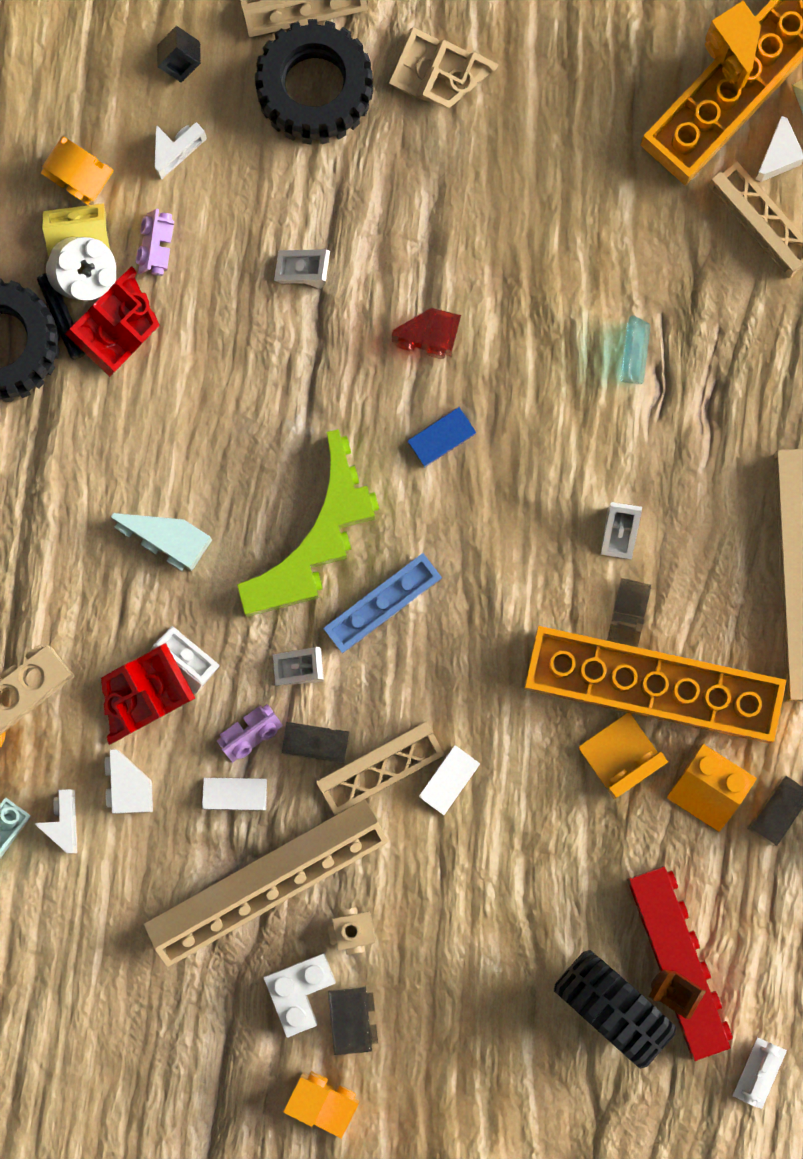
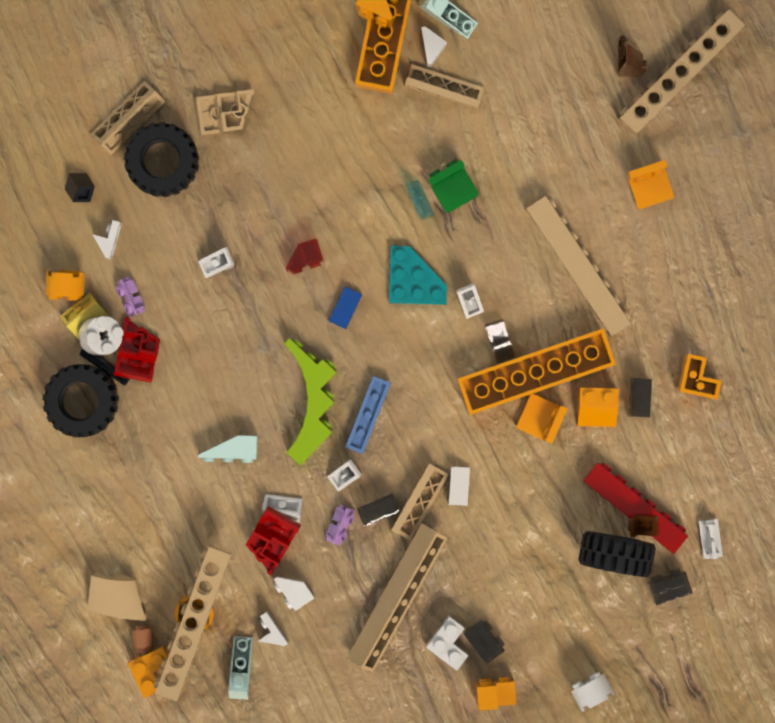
camera: 25 degrees left, 5 degrees up
(234, 794) = (352, 561): white slope -> none
(364, 926) = (457, 587): tan brick -> none
(560, 456) = (413, 279): none -> teal plate
(660, 1105) = (669, 587): none -> clear smoke brick
(693, 358) = (452, 186): none -> green bracket

